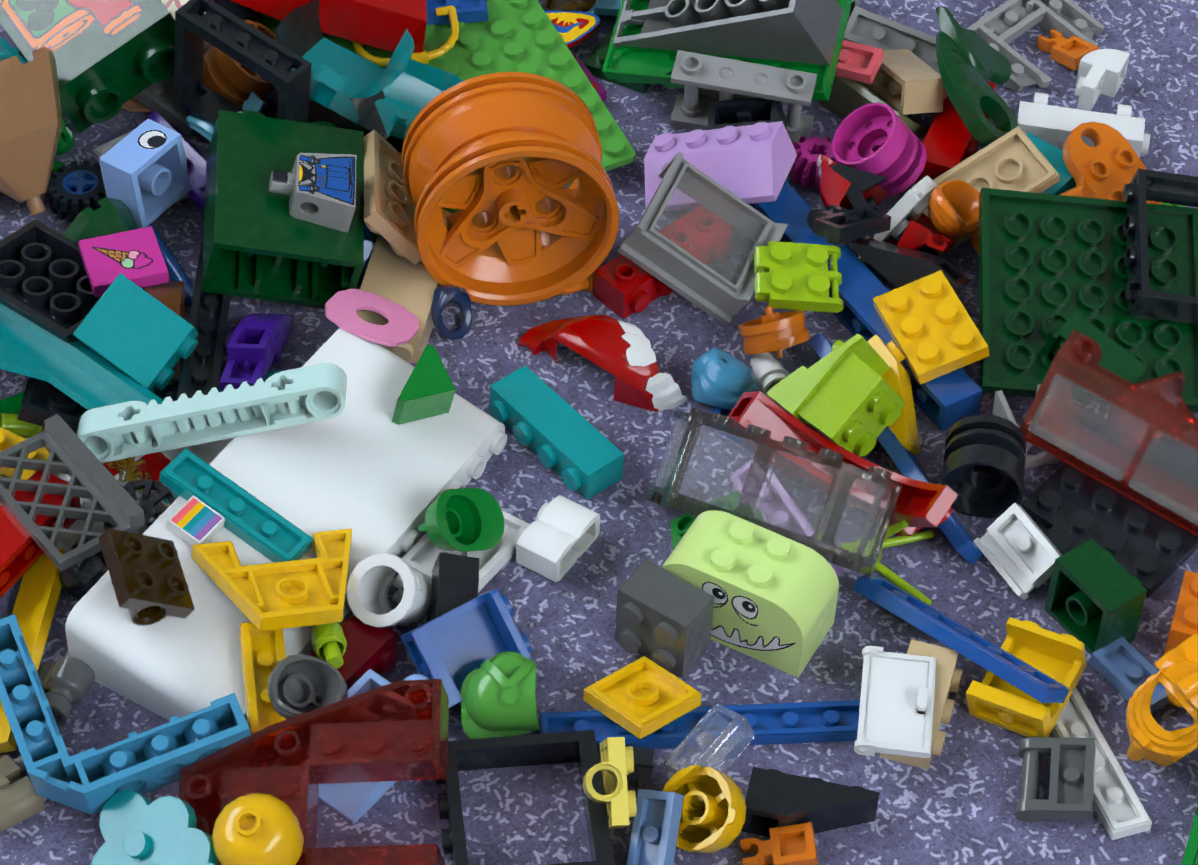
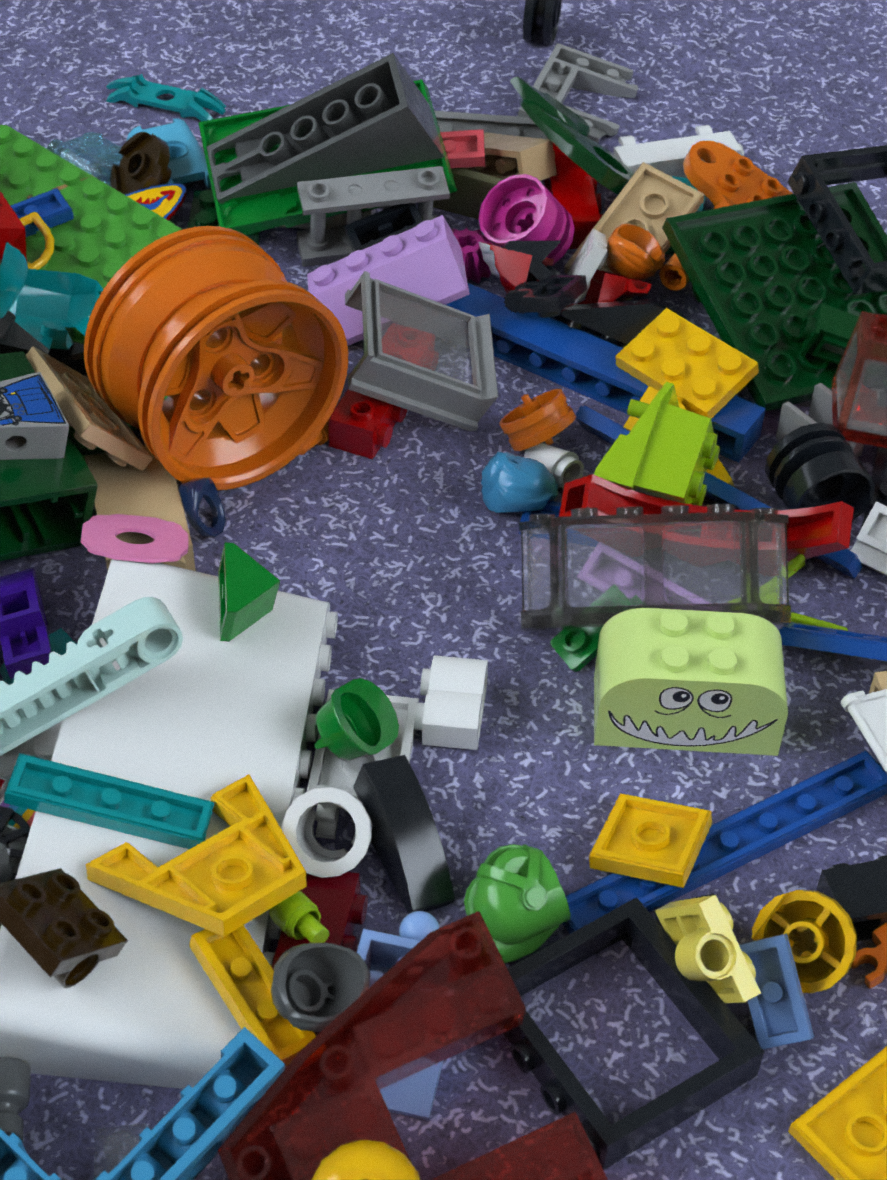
camera: 25 degrees left, 0 degrees up
(195, 522) = (73, 836): tile -> none
(464, 639) = (441, 853): panel -> none
(556, 433) = (385, 592): teal brick -> none
(617, 349) = (395, 485): red animal -> none
(663, 618) = (627, 745): dark grey brick -> none
(713, 741) = (752, 864): clear slope -> none
(798, 276) = (531, 359): lime plate -> none
(1064, 50) = (618, 98): orange plate -> none
(1099, 74) = (659, 109): white brick -> none

